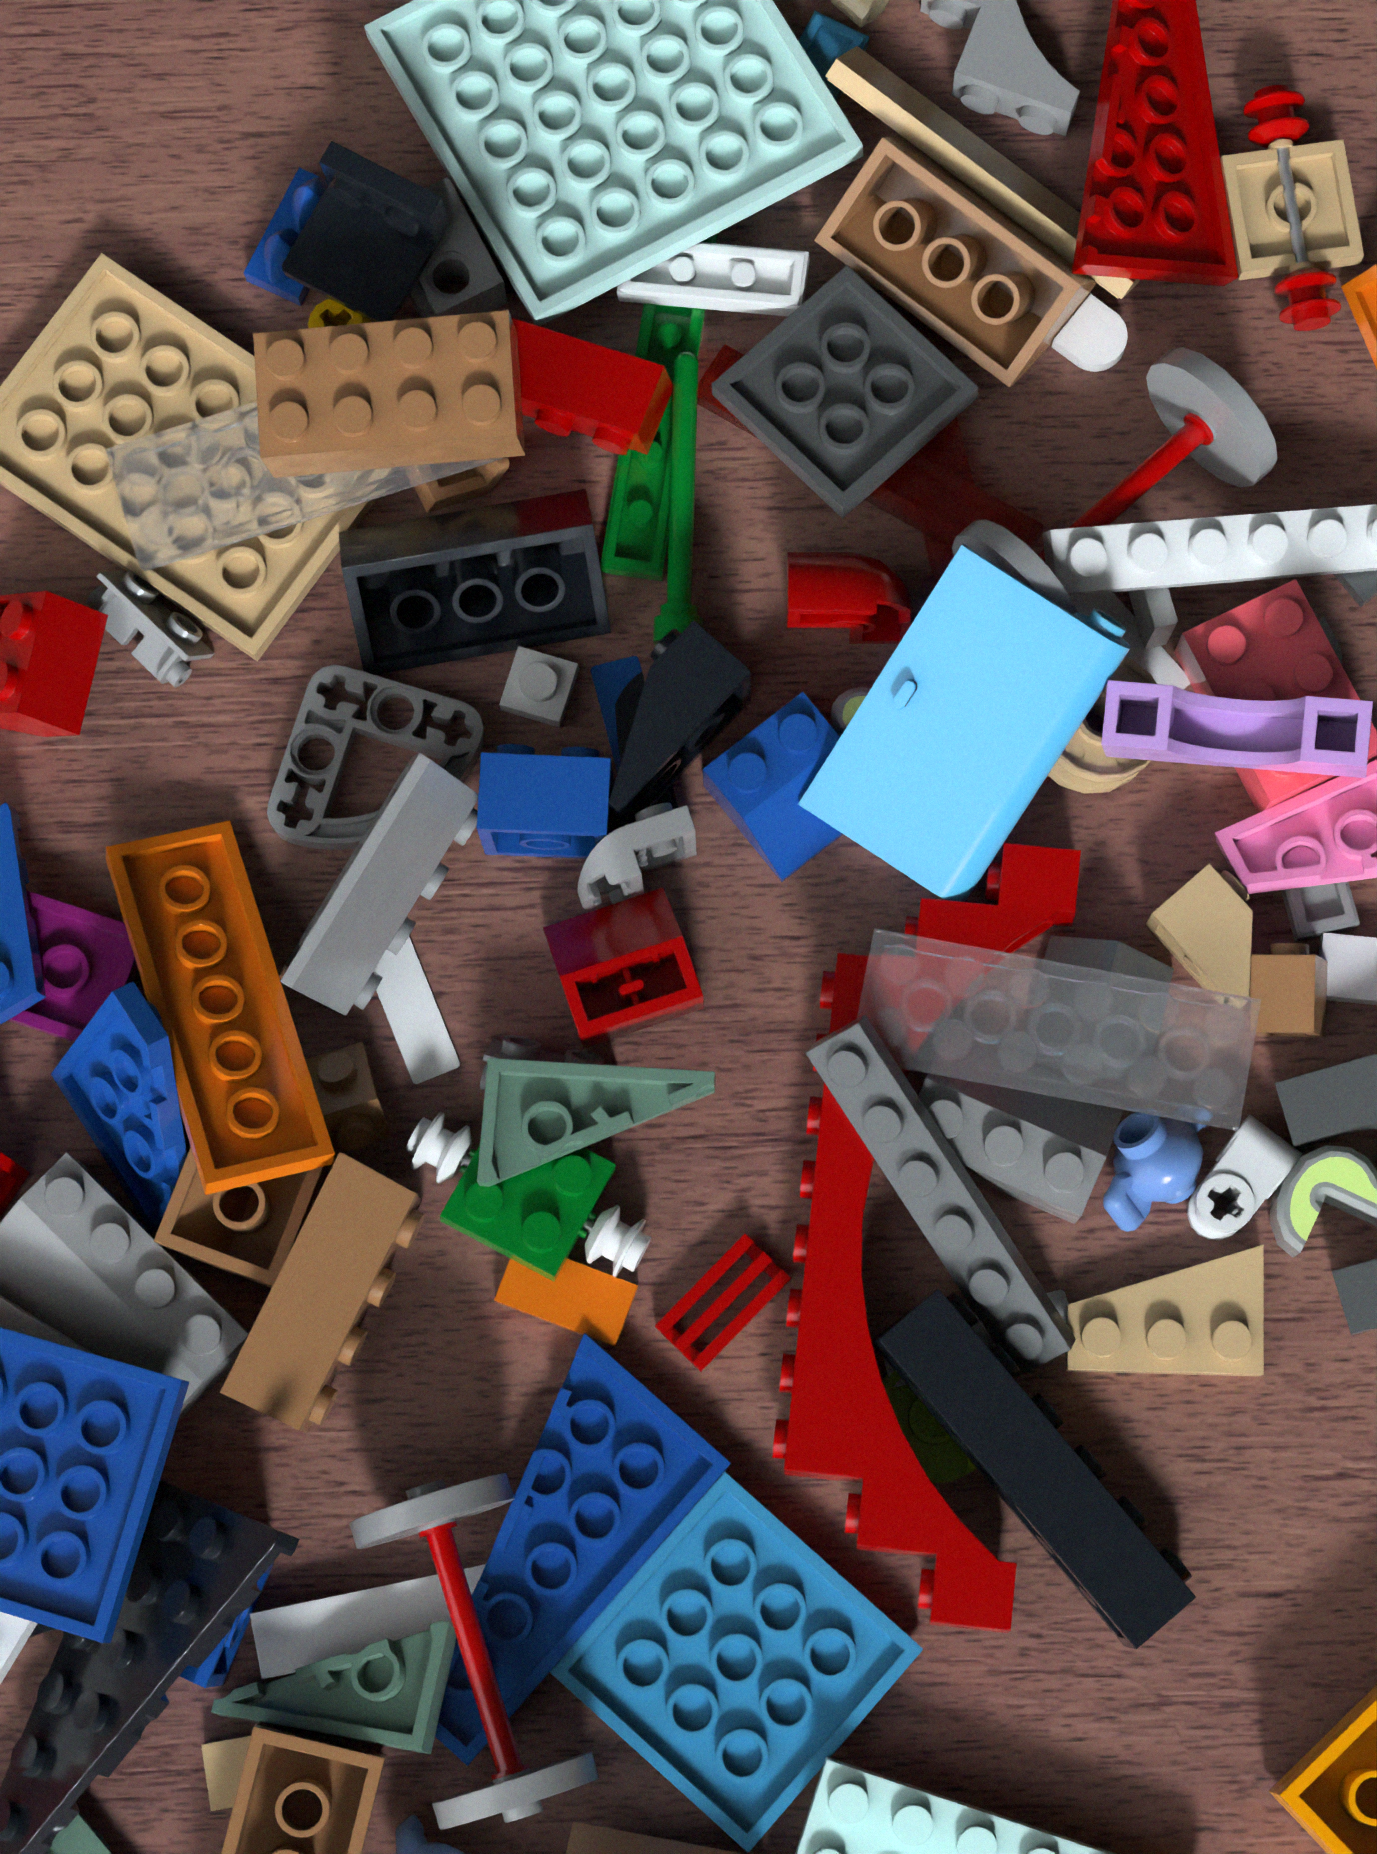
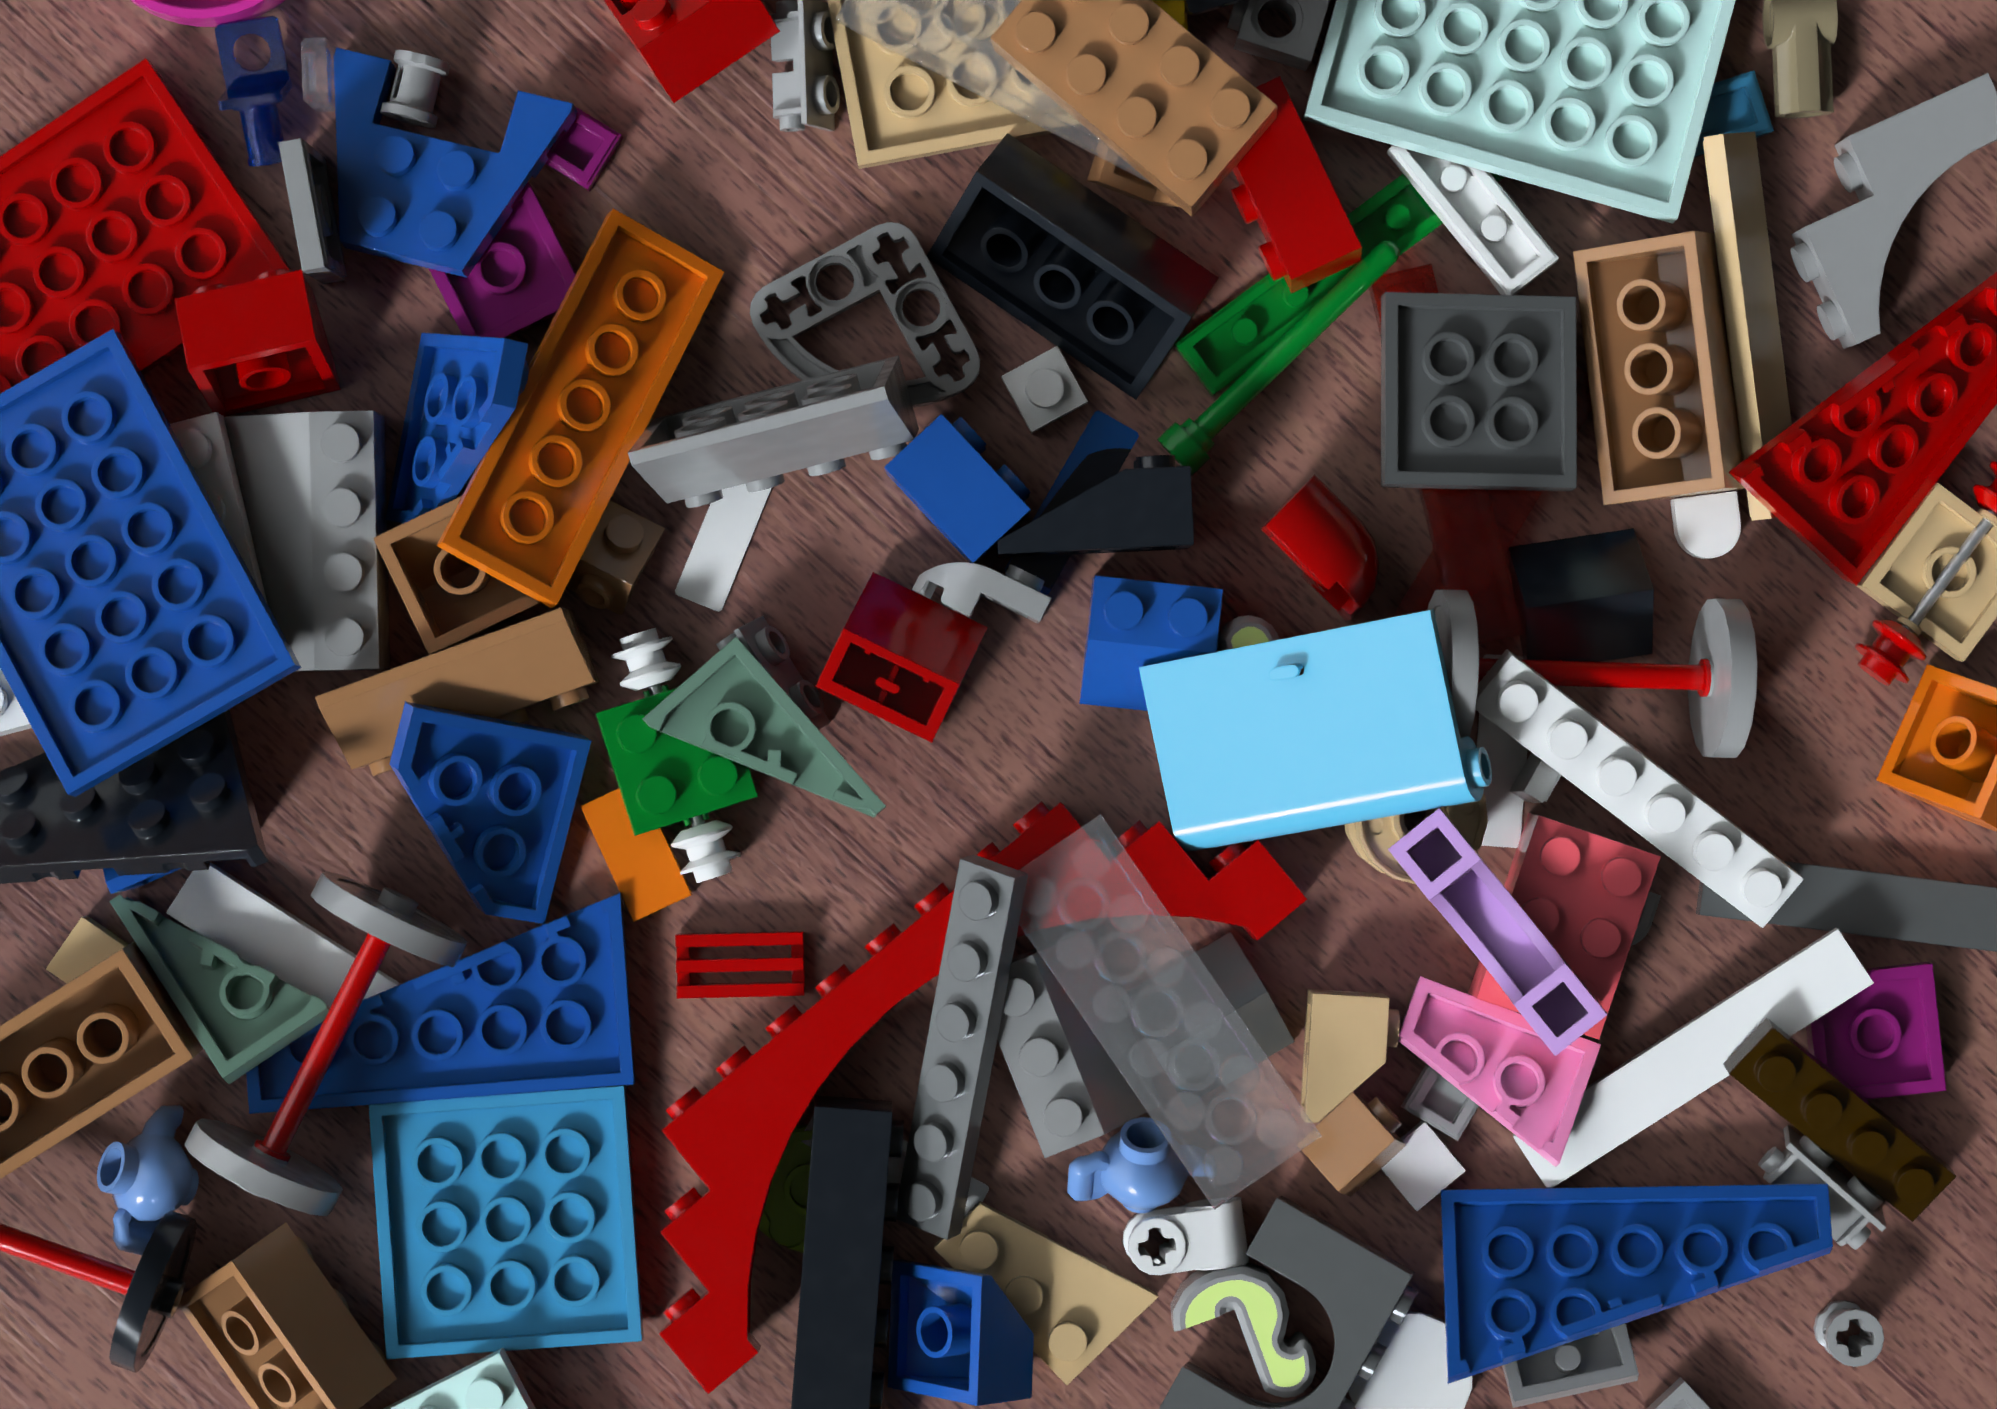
camera: 35 degrees right, 10 degrees up
(46, 834) = (583, 150): none -> magenta tile
(426, 1353) = (493, 801): none -> blue plate
(1060, 460) = (1583, 598): none -> black slope
(1147, 1414) = (956, 1337): none -> blue slope

